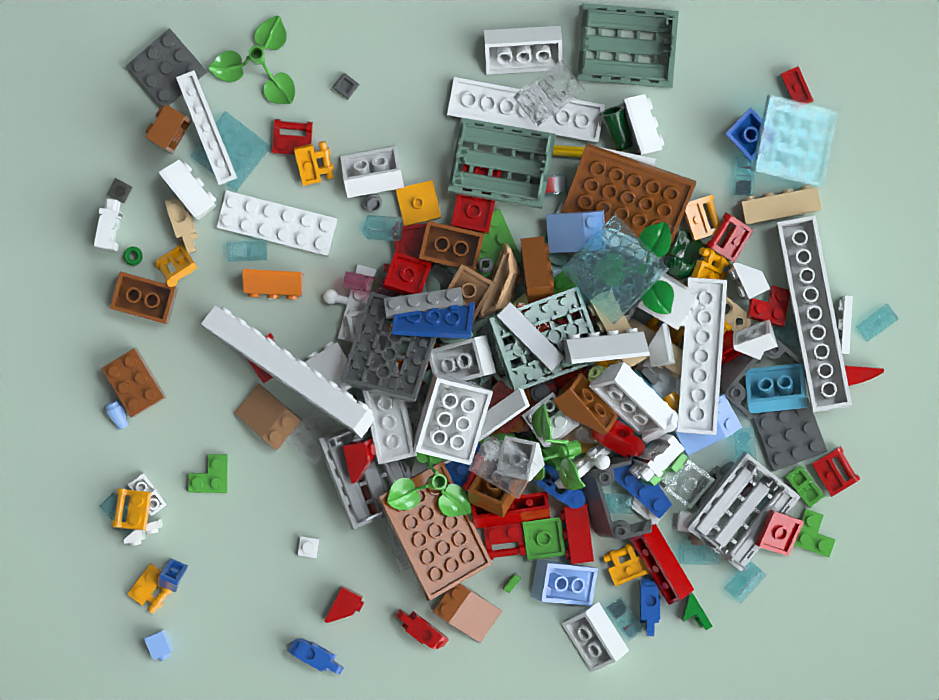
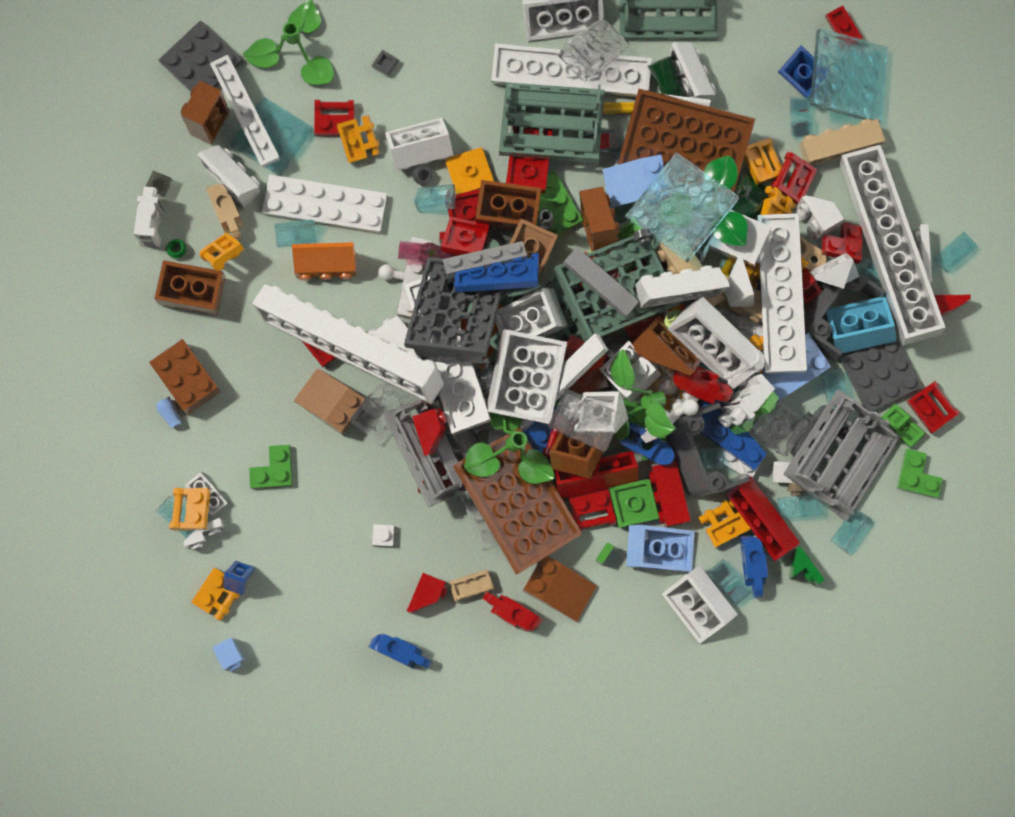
camera: 10 degrees left, 10 degrees down
(386, 601) = (471, 585): none -> tan plate
(506, 277) = (569, 233): light nougat wedge -> none
(575, 294) = (643, 236): none -> dark grey plate
(779, 532) = (883, 474): plate -> none

